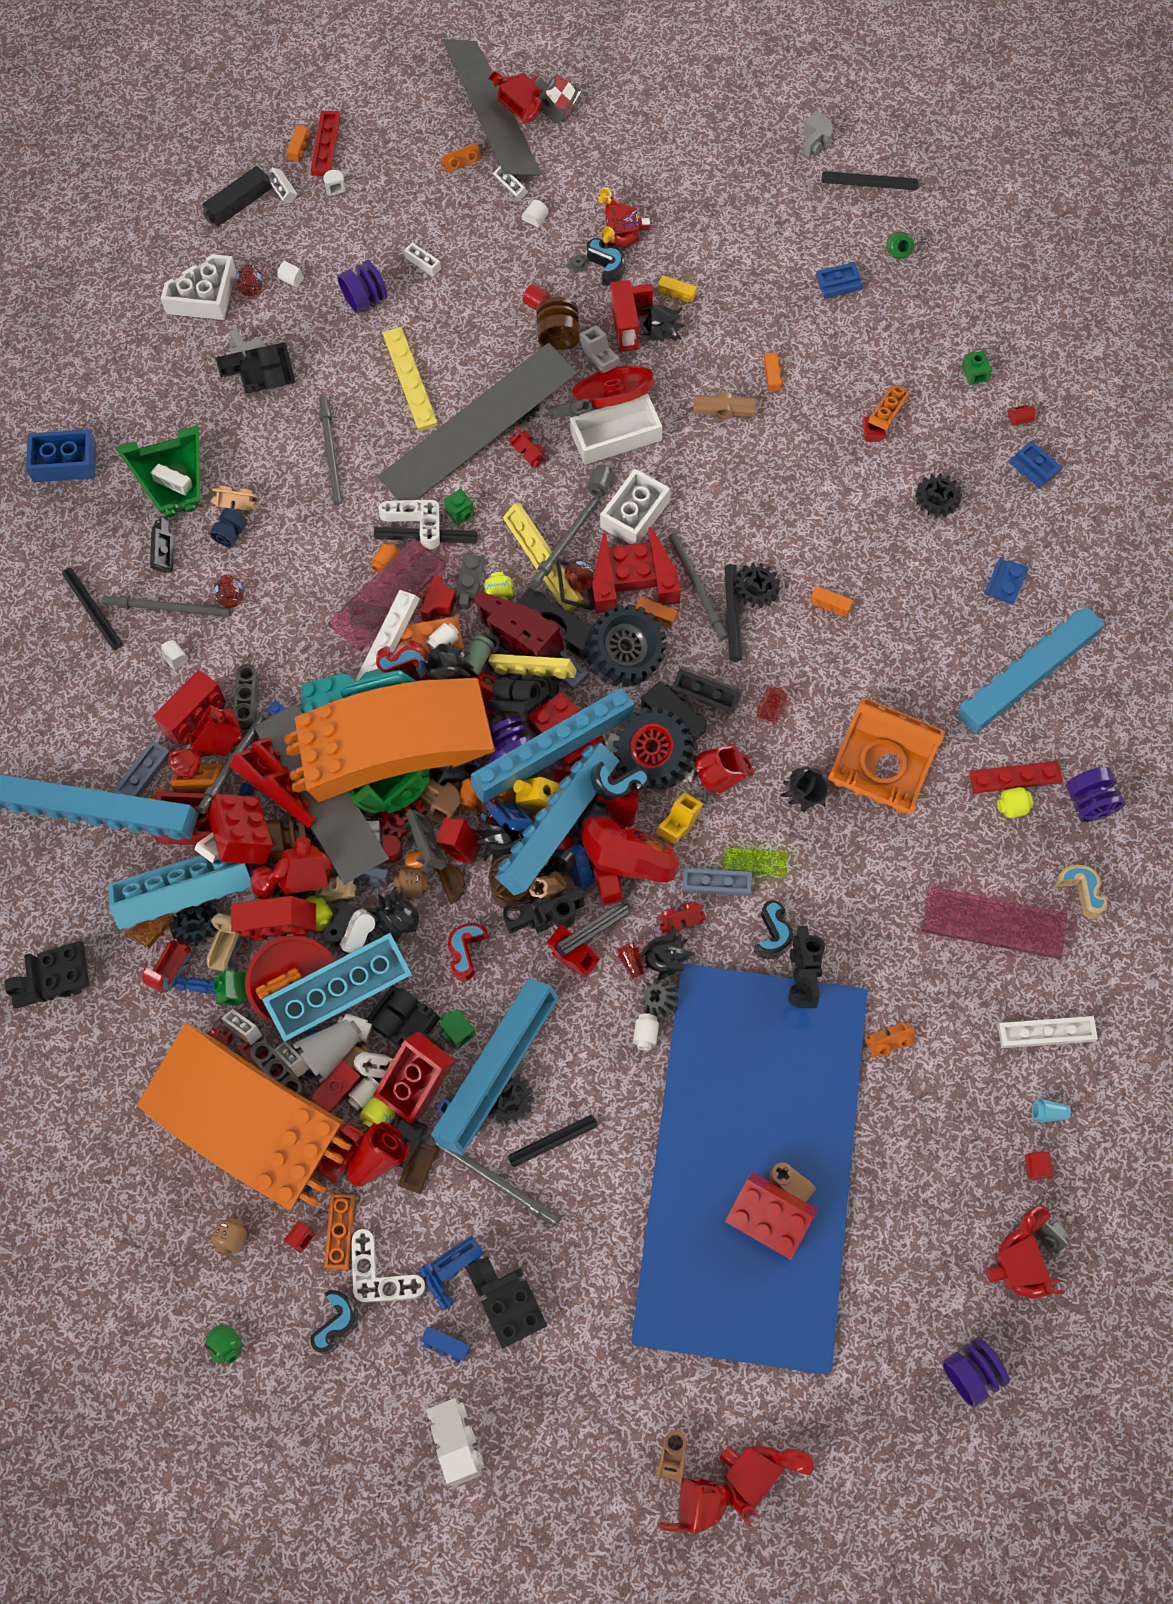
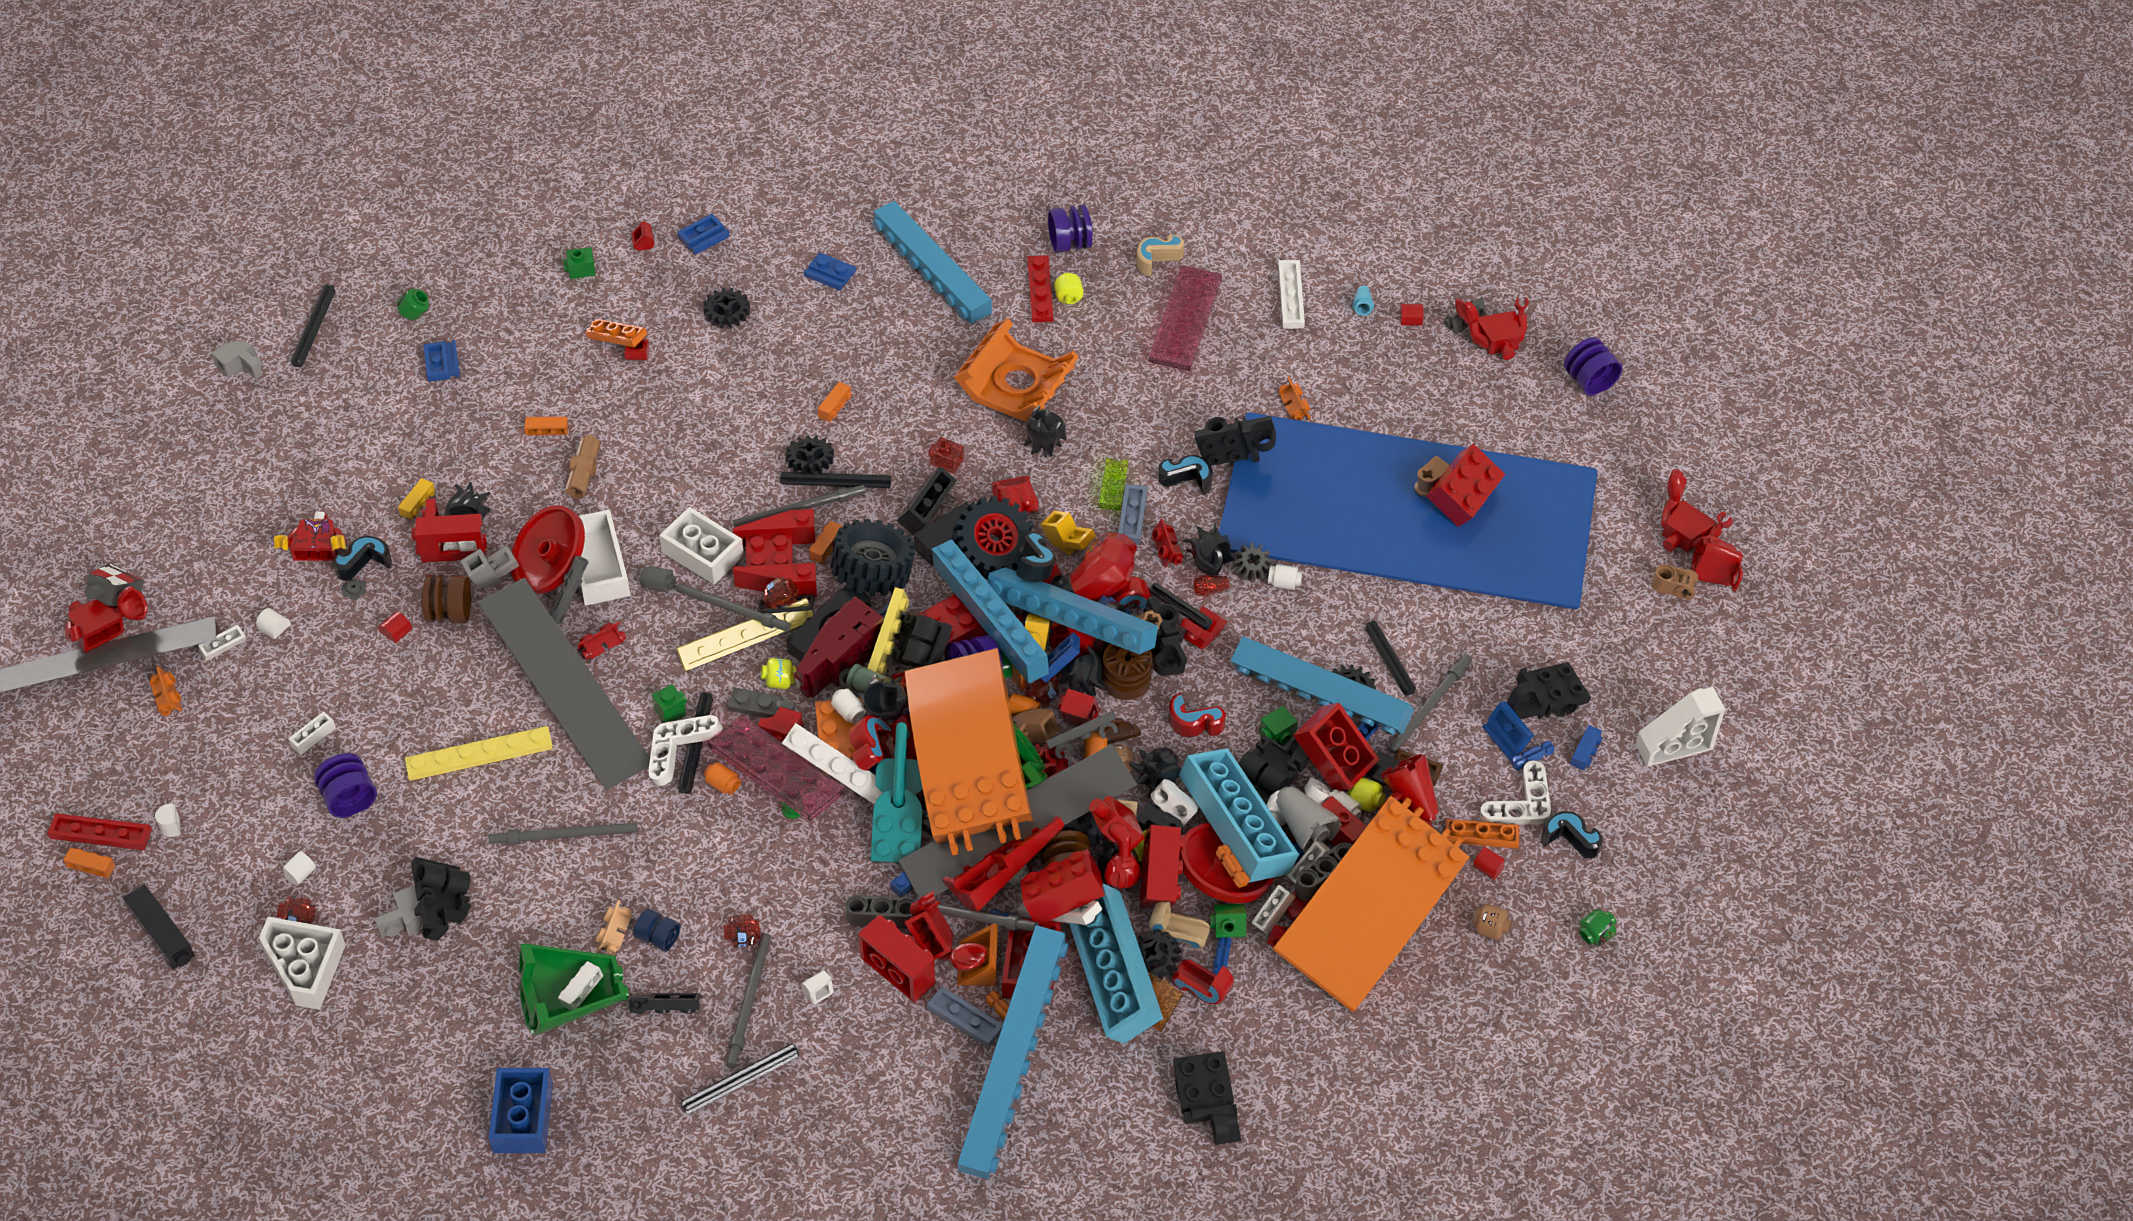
camera: 90 degrees left, 15 degrees down
(282, 185) = (156, 877): white piece -> none

